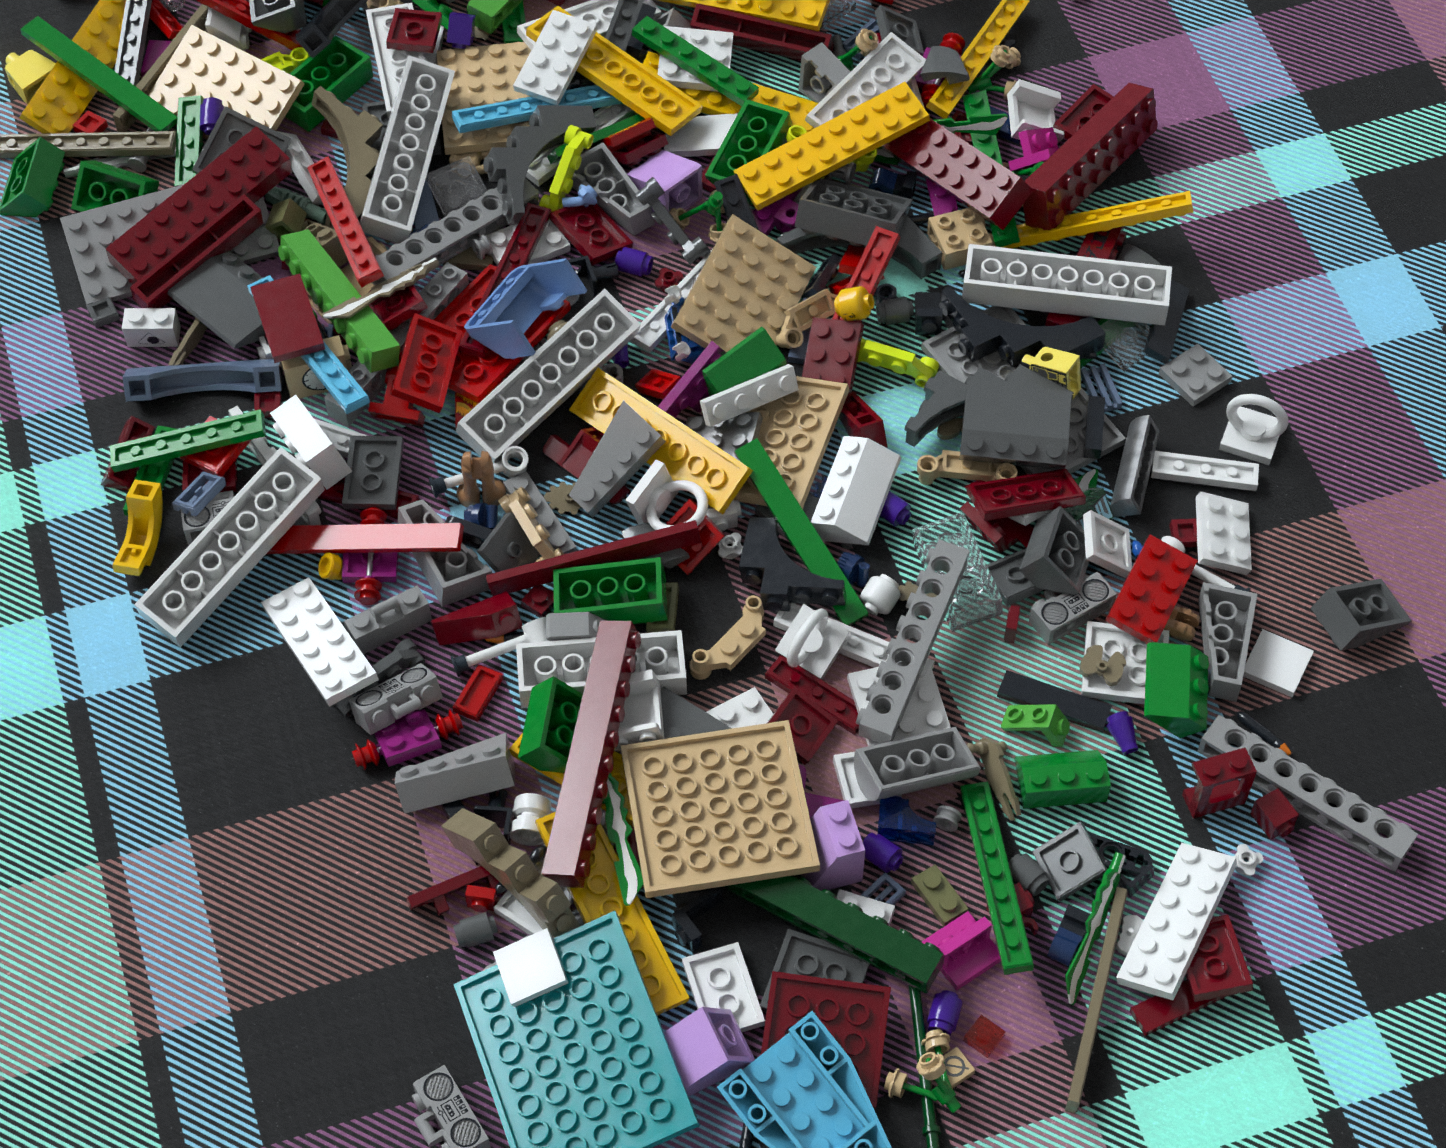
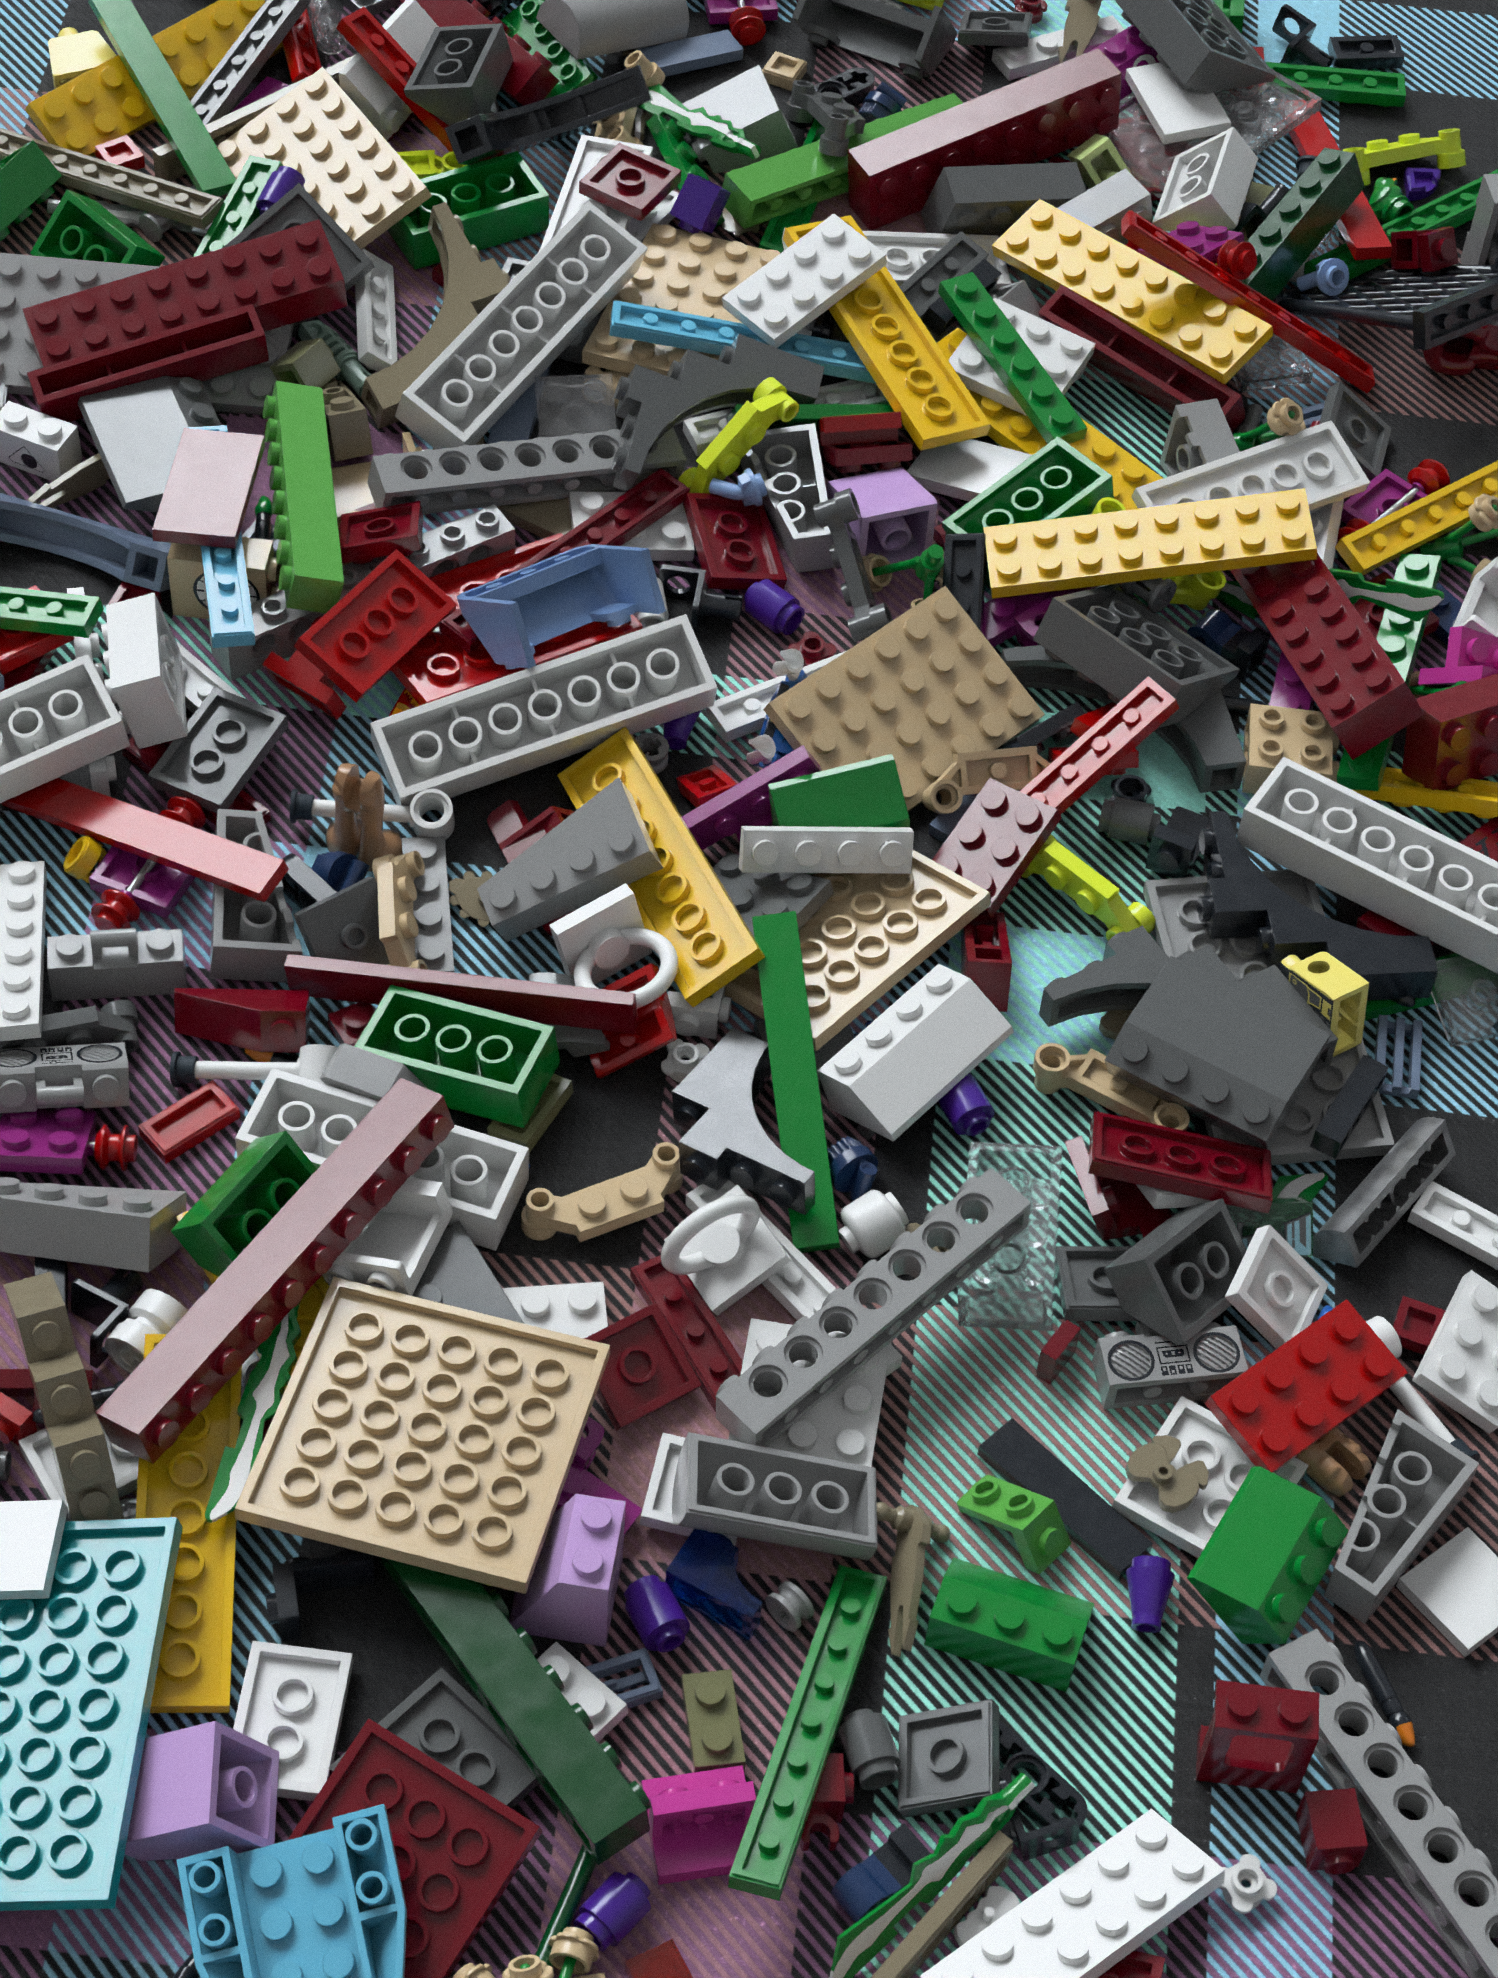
camera: 20 degrees right, 5 degrees down
(345, 222) = (376, 396): tile -> none
(384, 289) = (369, 501): dark tan sword -> none
(481, 247) = (560, 504): light grey bush -> none
(854, 303) = (1057, 777): yellow head -> none
(944, 63) = (1393, 493): dark grey slope -> none

